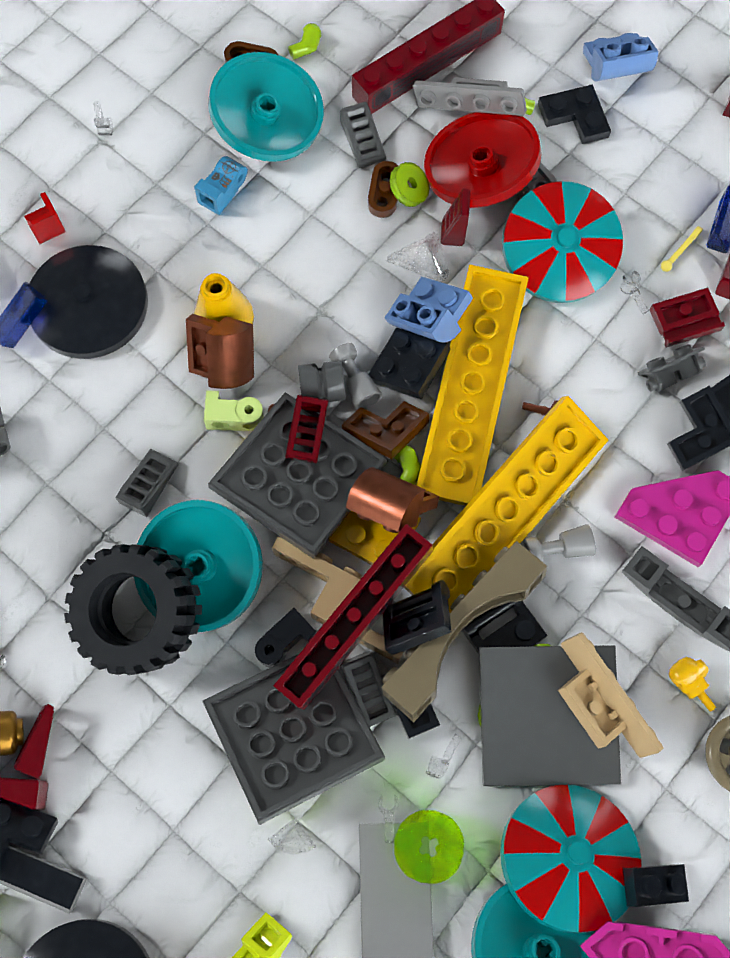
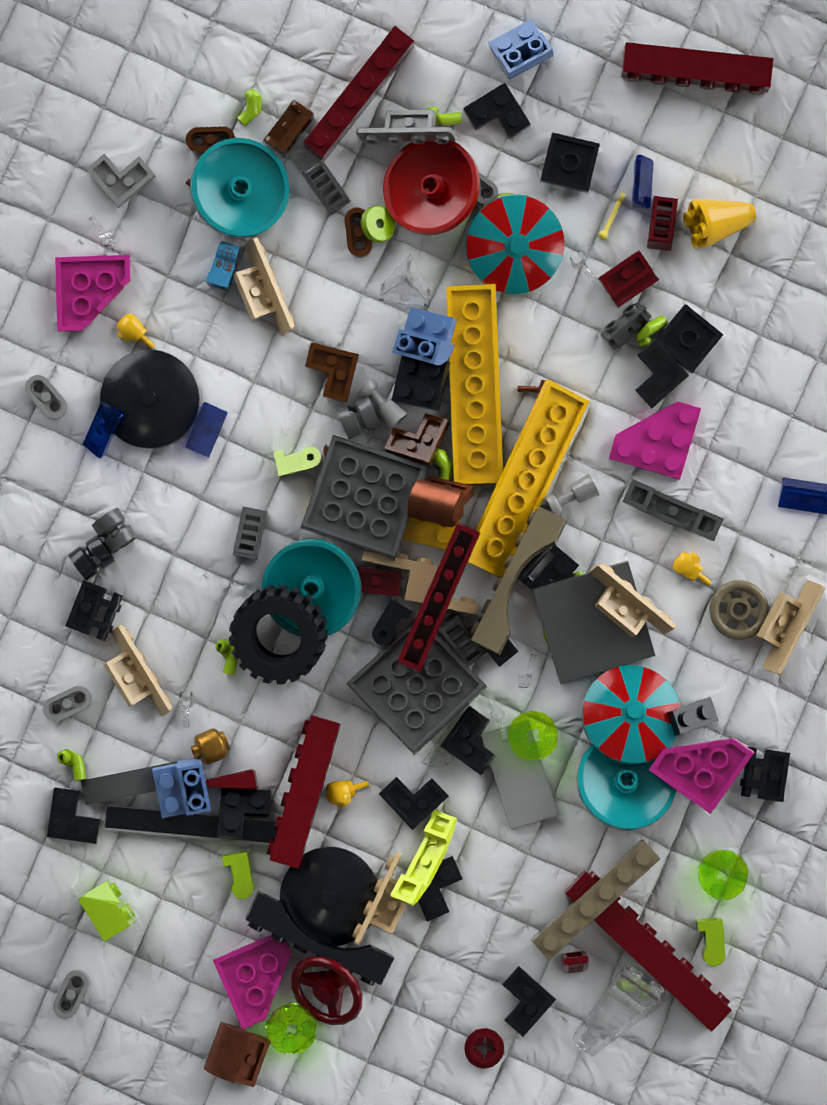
camera: 15 degrees left, 15 degrees up
(33, 752) = (239, 752): dark red slope -> none
(45, 221) = (91, 341): red panel -> none
(62, 166) = (87, 287): none -> dark pink plate
(62, 638) = (225, 650): none -> lime arm
(94, 837) = (304, 792): none -> dark red brick
(95, 221) = (132, 329): none -> yellow piece
(138, 349) = (206, 429): none -> clear blue slope
(141, 77) = (123, 184): none -> light grey plate
(149, 847) = (341, 792): none -> yellow piece
(220, 350) = (274, 418): copper brick -> none
(221, 298) = (266, 392): yellow cone -> none
(237, 899) = (413, 807): none -> black plate
(253, 218) = (260, 289): none -> tan bracket
(287, 583) = (380, 581): none -> dark red plate
(313, 405) = (349, 443): dark red slope -> none
(316, 321) = (339, 365): none -> reddish brown plate
(331, 827) = (463, 741): none -> black plate
(338, 74) = (289, 128): none -> reddish brown hinge
(417, 619) = (484, 589): black plate -> none
(456, 220) = (424, 249): dark red slope -> none
(646, 179) = (570, 162): none -> black plate
(699, 378) = (650, 328): none -> lime arm

